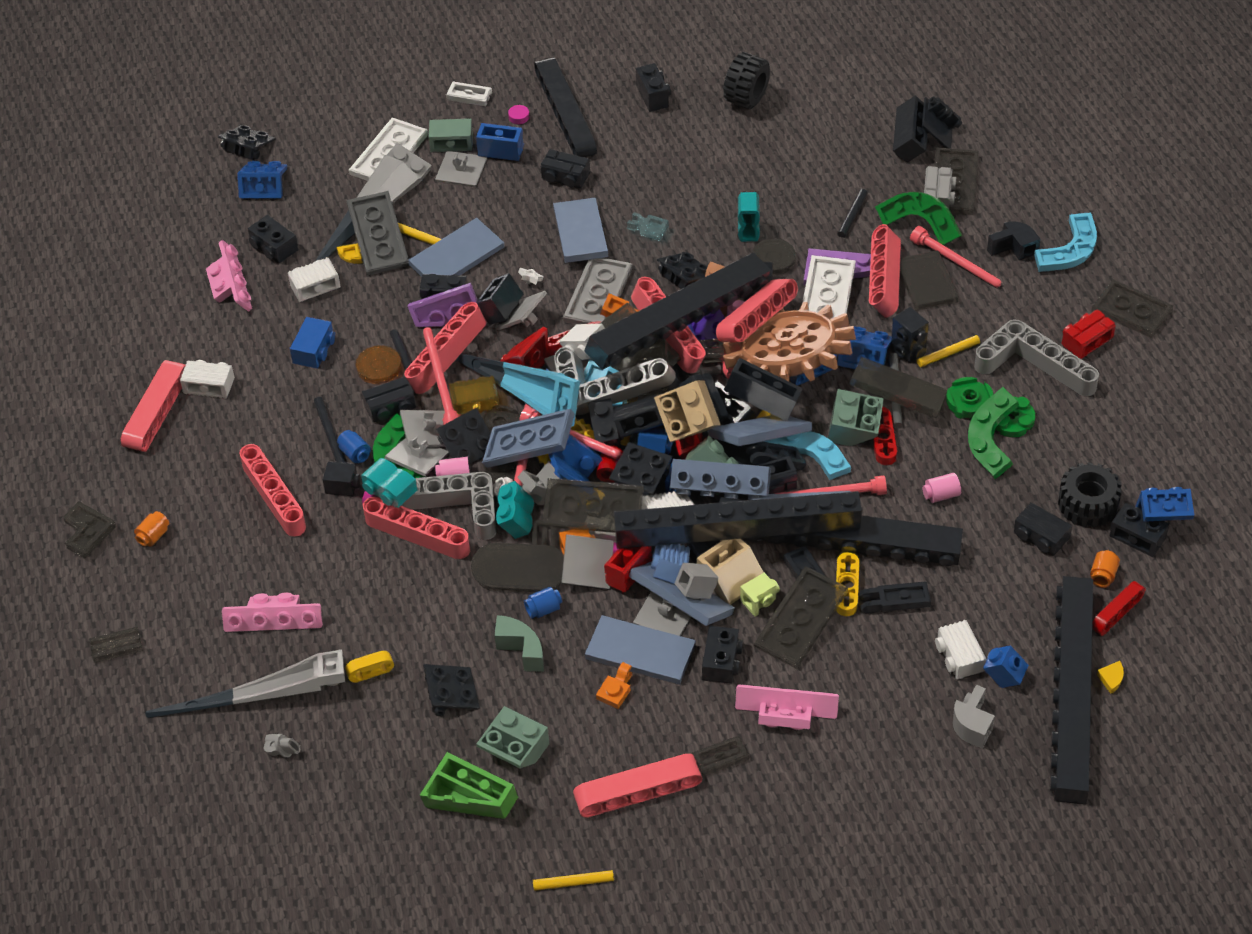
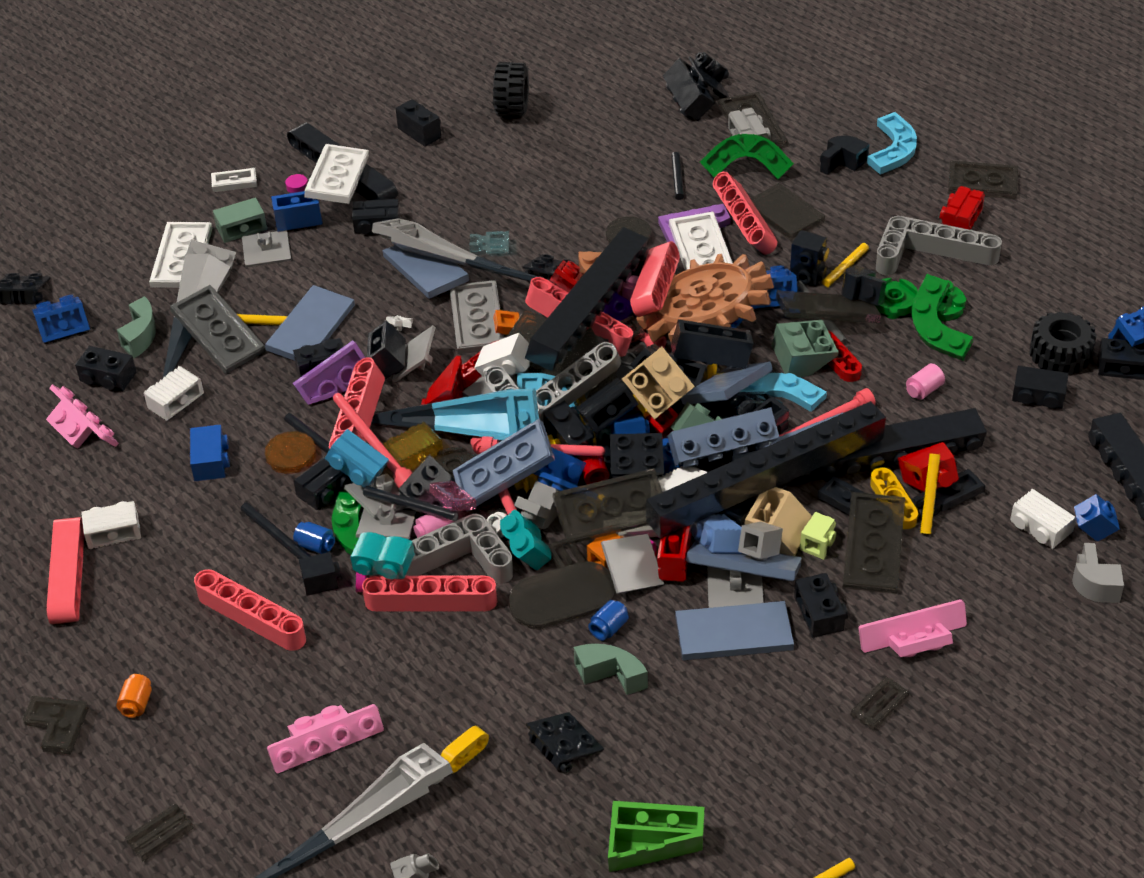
camera: 25 degrees left, 5 degrees down
(317, 215) = (139, 333): none -> sand green brick
(350, 252) = (196, 357): yellow tile -> none
(415, 391) = (356, 459): none -> dark azure brick
(440, 445) = (410, 503): none -> black bar
(475, 450) = (452, 496): none -> clear pink plate
(515, 738) = (668, 761): sand green slope -> none
(548, 118) = (336, 173): none -> white tile
(585, 203) = (419, 240): none -> light grey plate
(616, 689) = (733, 677): orange plate -> none
(637, 785) = (819, 762): coral beam -> none
(676, 280) = (566, 275): none -> red slope
(748, 216) = (588, 203): teal brick -> none
(870, 592) = (930, 493): none -> yellow piece
(891, 568) = (915, 467): none -> red torso
(921, 236) = (757, 176): coral piece -> none
(942, 377) = (862, 285): none -> black brick
(1104, 568) = (1119, 400): orange brick -> none

